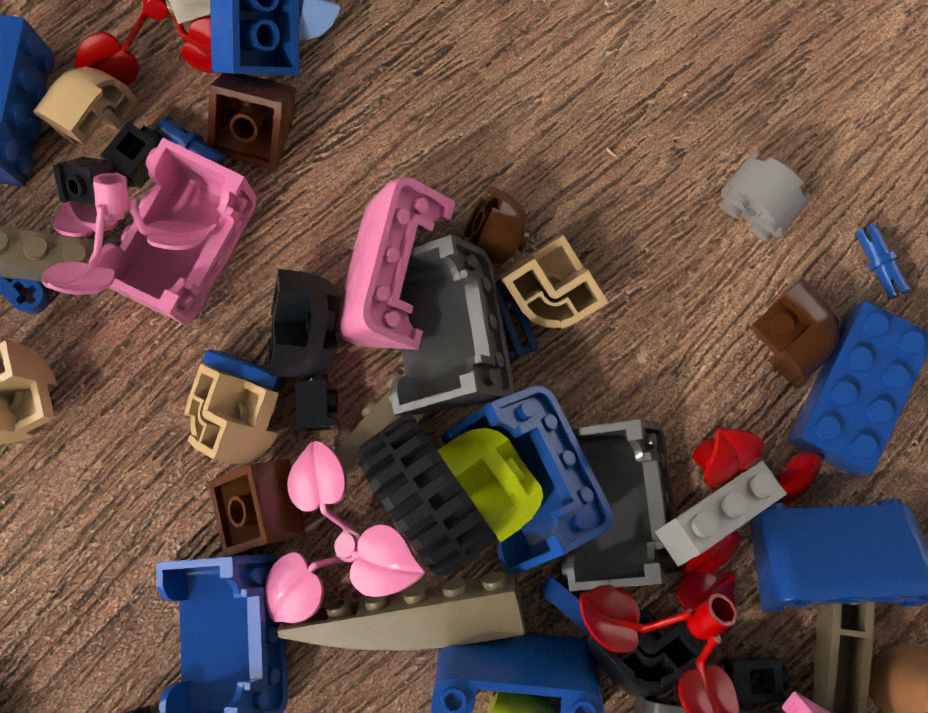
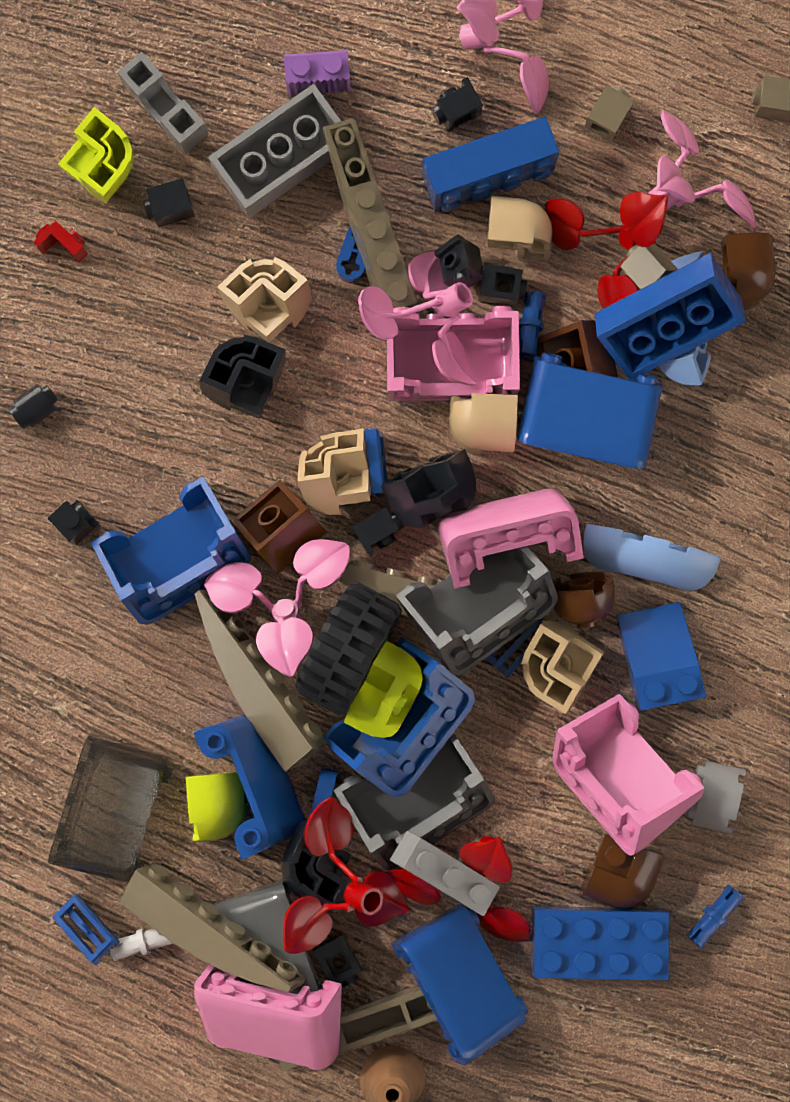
camera: 65 degrees right, 5 degrees up
(71, 463) = (243, 374): none -> black brick
(260, 235) = (484, 422): none -> tan brick
(306, 126) = (589, 413): none -> blue windscreen
(489, 144) = (648, 558): none -> light blue brick
(594, 185) = (660, 657): none -> blue slope
(703, 278) = (622, 775): none -> bright pink windscreen

